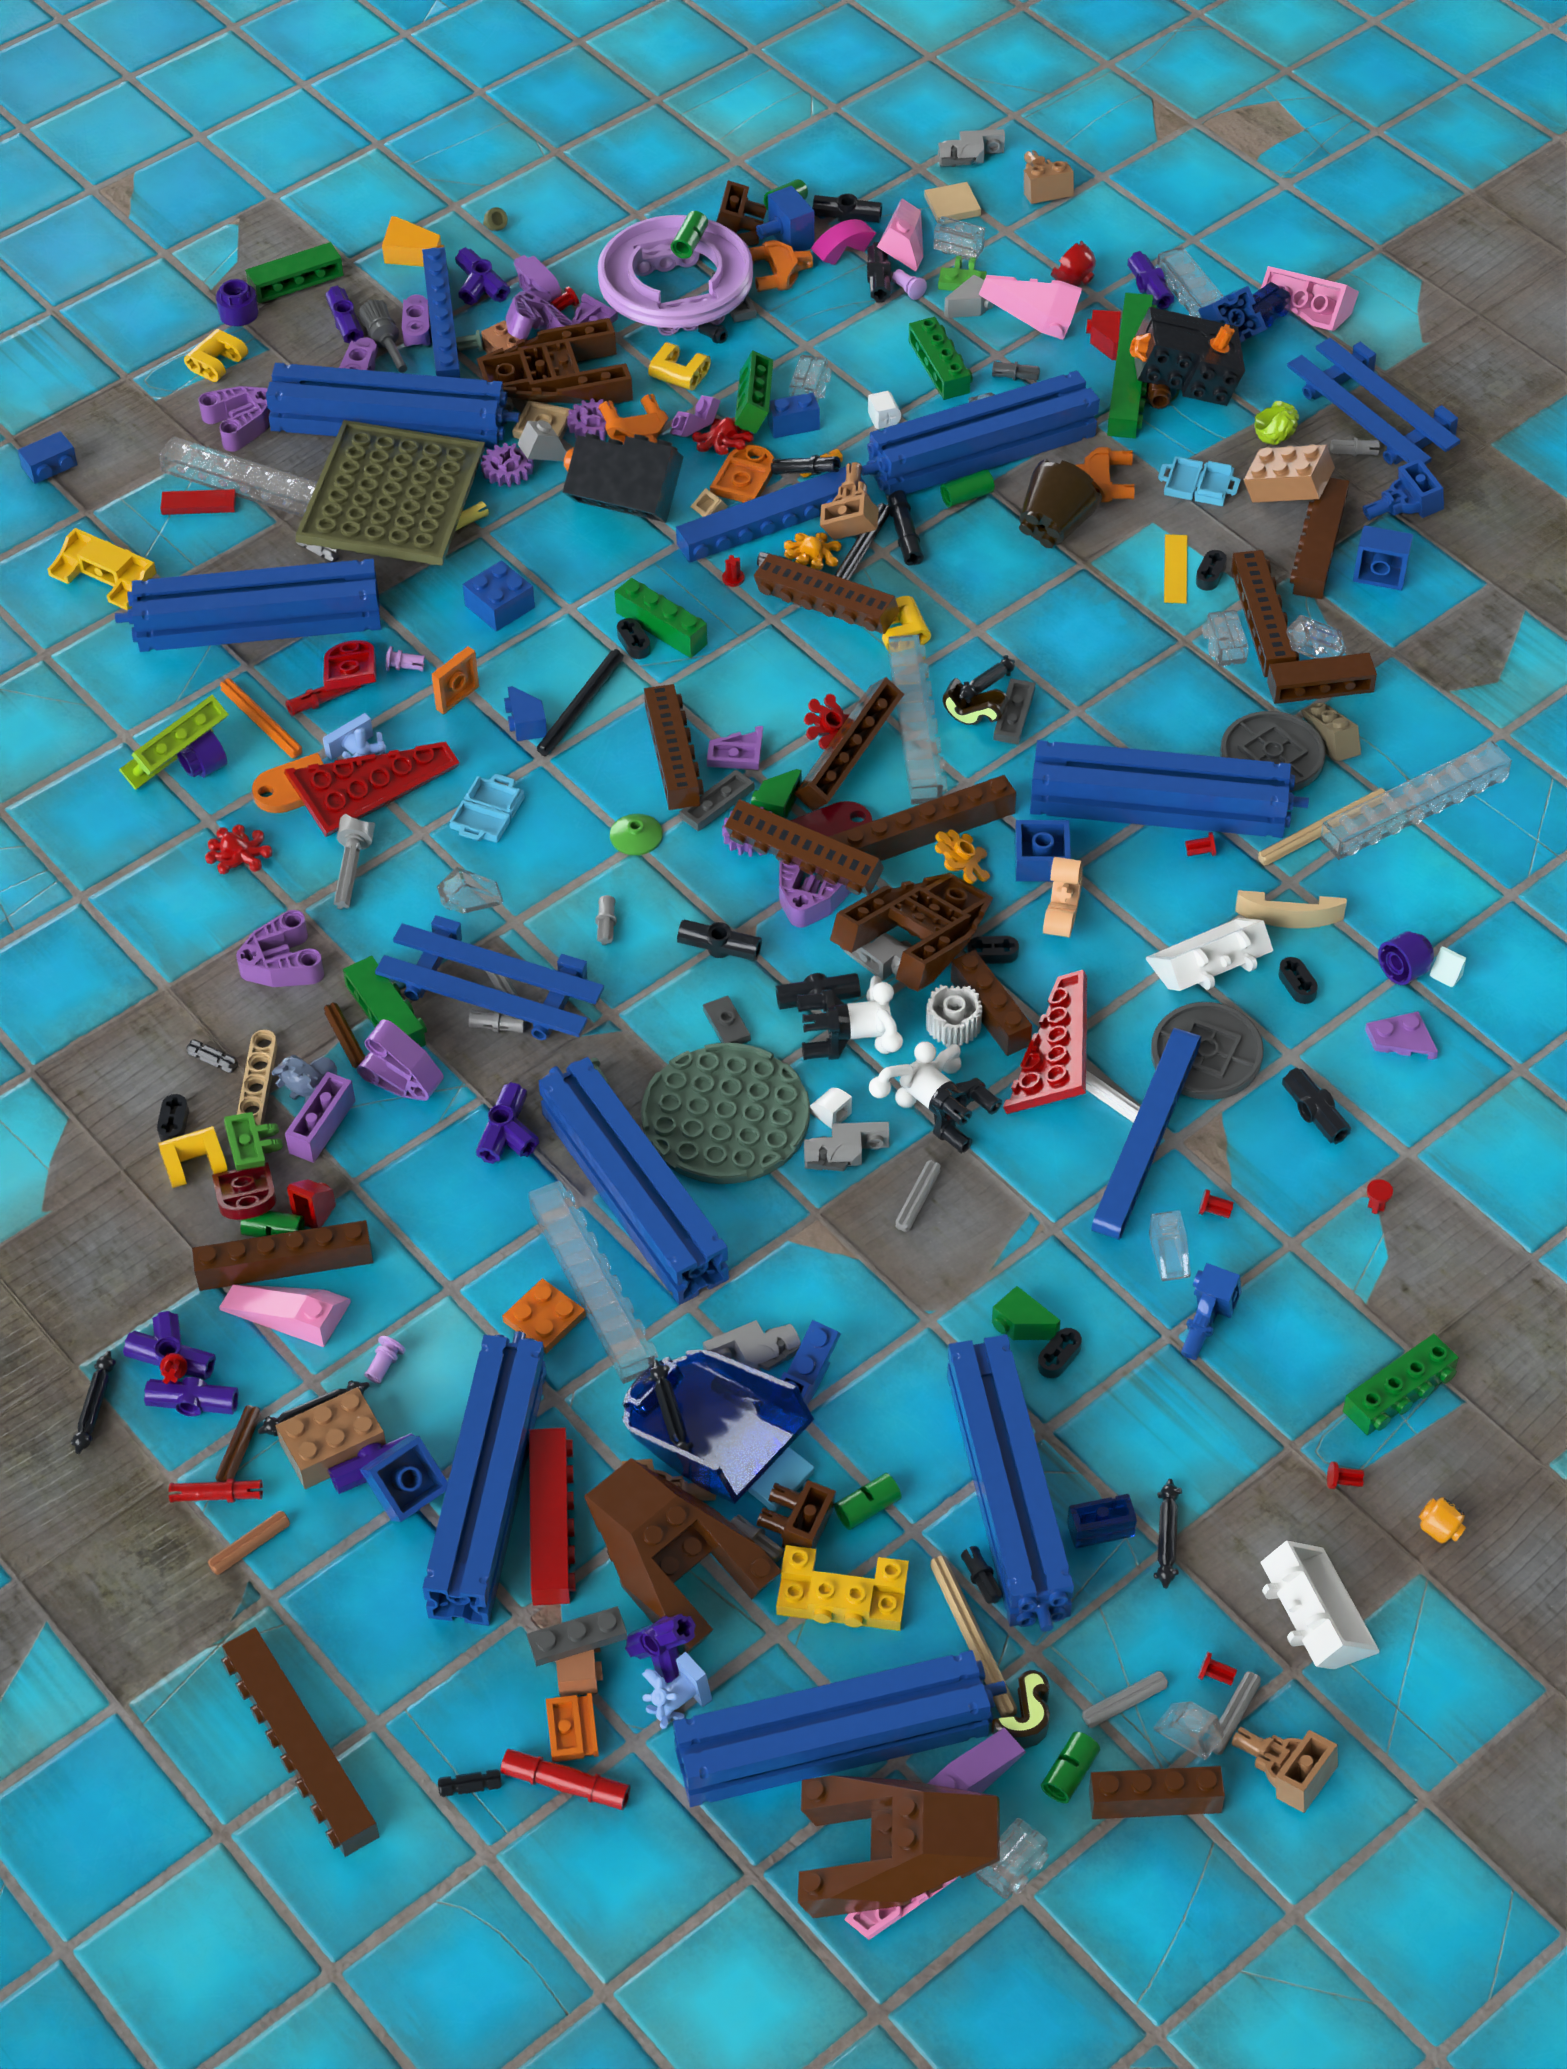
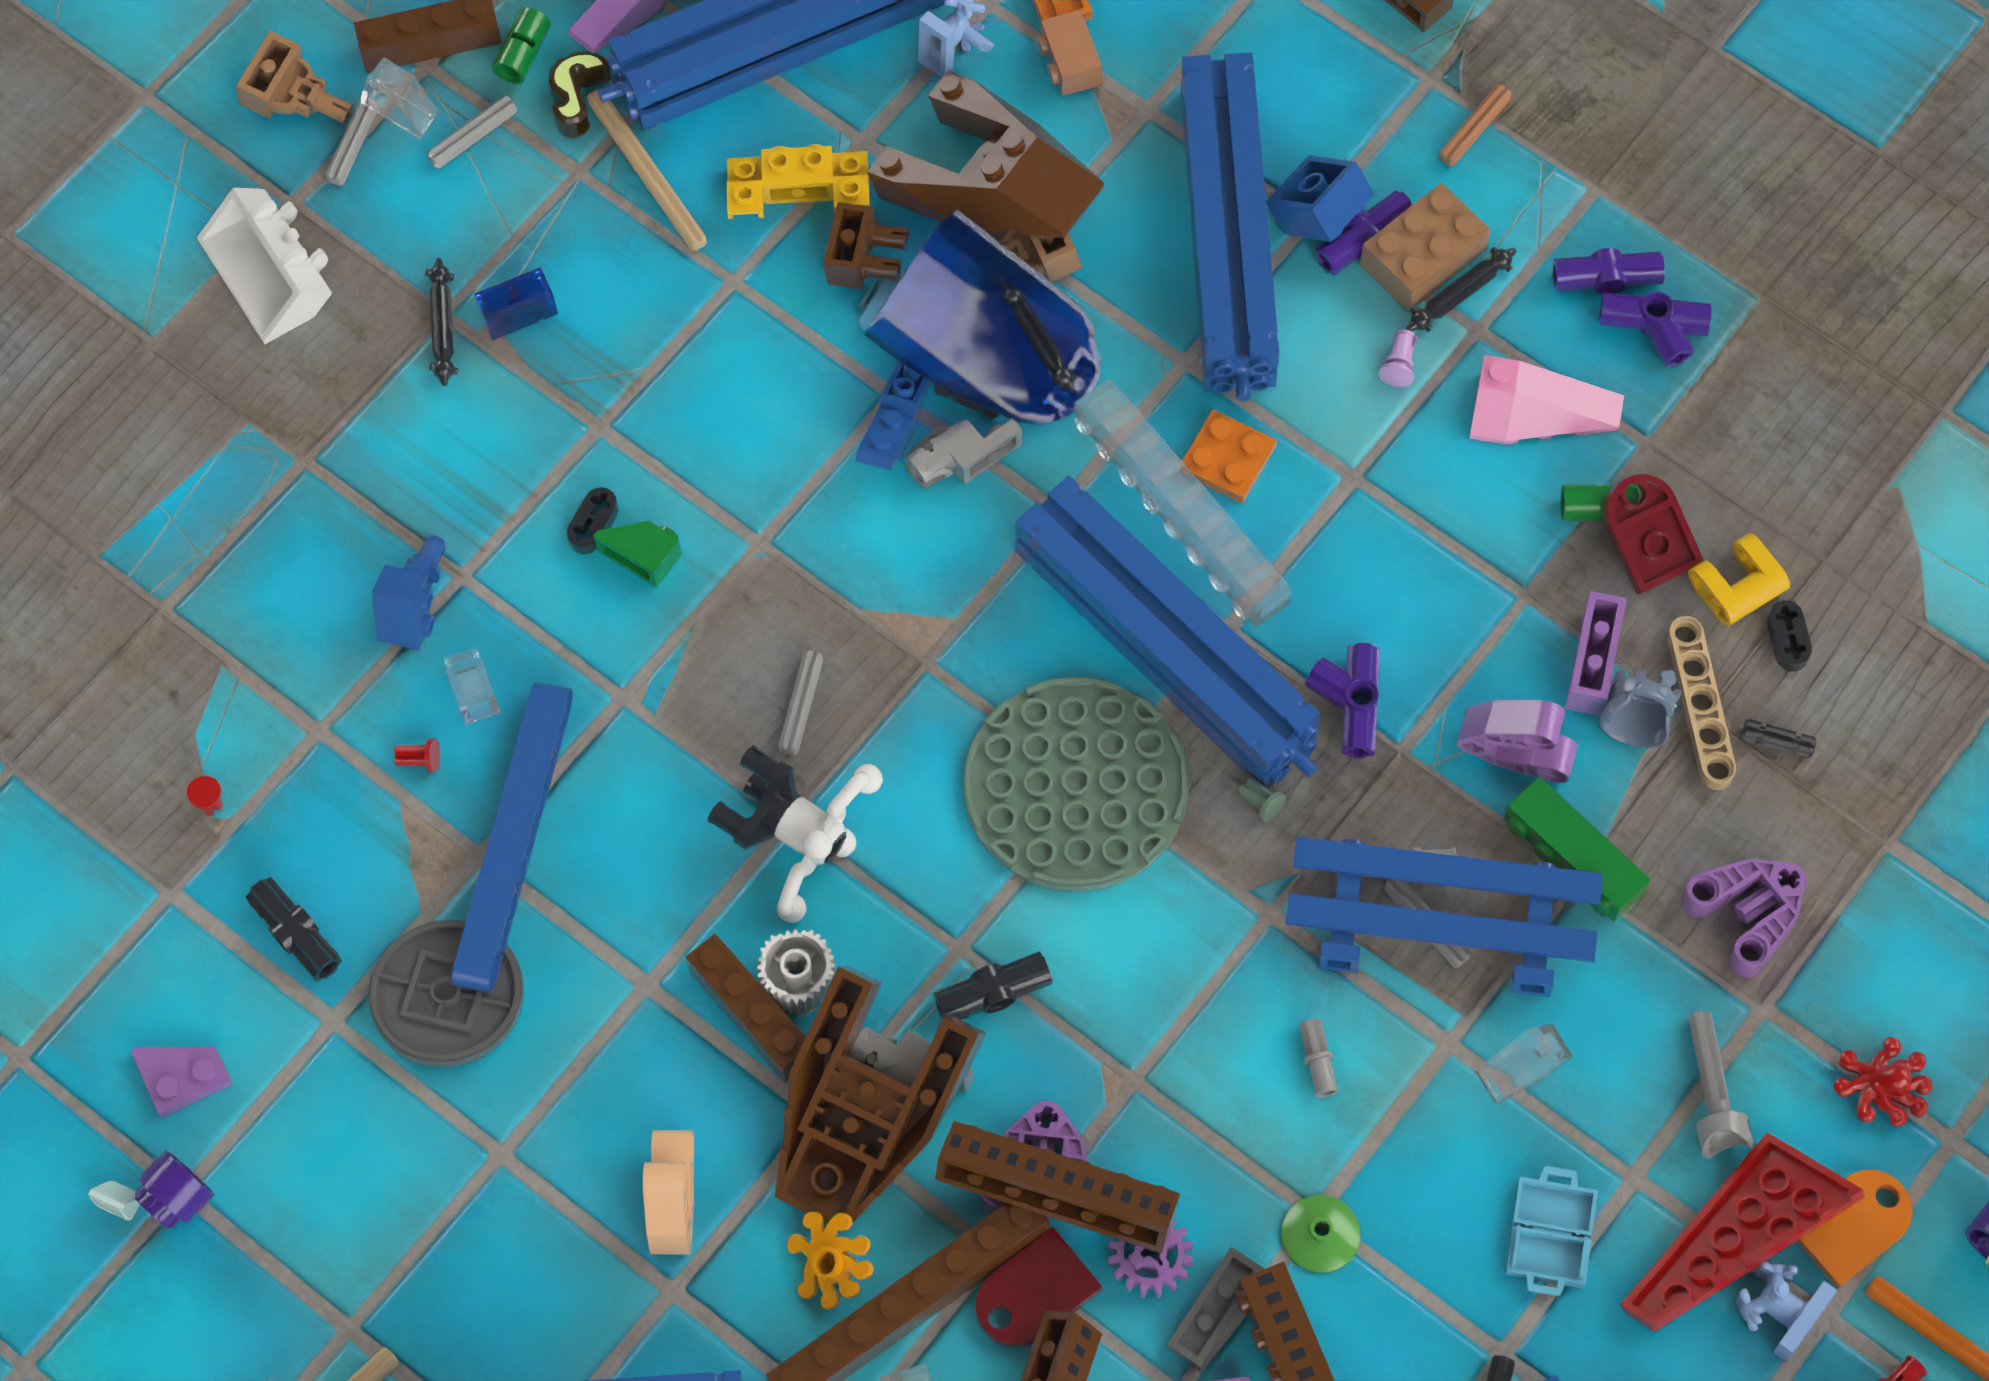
camera: 170 degrees right, 15 degrees up
(93, 1402) = (1720, 250): black wheel -> none
(173, 1367) = (1639, 276): red piece -> none
(226, 1490) = (1521, 173): red pin -> none
(238, 1443) = (1531, 231): reddish brown axle -> none
(245, 1140) = (1676, 596): bright green hinge -> none
(282, 1255) = (1569, 461): reddish brown brick -> none
(312, 1201) = (1561, 531): red slope -> none
(344, 1034) = (1615, 803): reddish brown axle -> none
(550, 1516) = (1146, 209): red brick -> none
(577, 1636) = (1072, 52): dark grey plate -> none
(661, 1643) = (980, 63): dark purple piece -> none
(719, 940) = (1123, 1042): black piece -> none
(726, 1021) = (1108, 922): dark grey plate -> none
(773, 1550) = (891, 217): light grey axle -> none
(778, 793) = (1127, 1326): green slope -> none
(832, 1107) = (938, 809): white brick -> none
(845, 1145) = (910, 742): light grey plate -> none
(850, 1021) = (930, 914): wheel -> none
(867, 1501) = (789, 289): green pin -> none
(982, 1575) = (645, 232): black axle -> none
(993, 948) = (757, 1105): black beam -> none
(1010, 1483) = (629, 328): blue brick -> none
(1037, 845) = (713, 1285): blue brick -> none
(1056, 1054) = (649, 933): red wing -> none
(1111, 1097) = (578, 904): white axle -> none
(1201, 845) = (482, 1358): red piece -> none
(1211, 954) = (454, 1157): white piece -> none
(1216, 1670) = (375, 176): red piece -> none
(1289, 914) = (293, 1261): tan slope -> none
(1294, 981) = (320, 1146): black beam -> none
(1343, 1476) = (241, 422): red piece -> none
(1401, 1384) = (175, 546): green brick -> none
(1442, 1520) = (126, 385): light orange head -> none

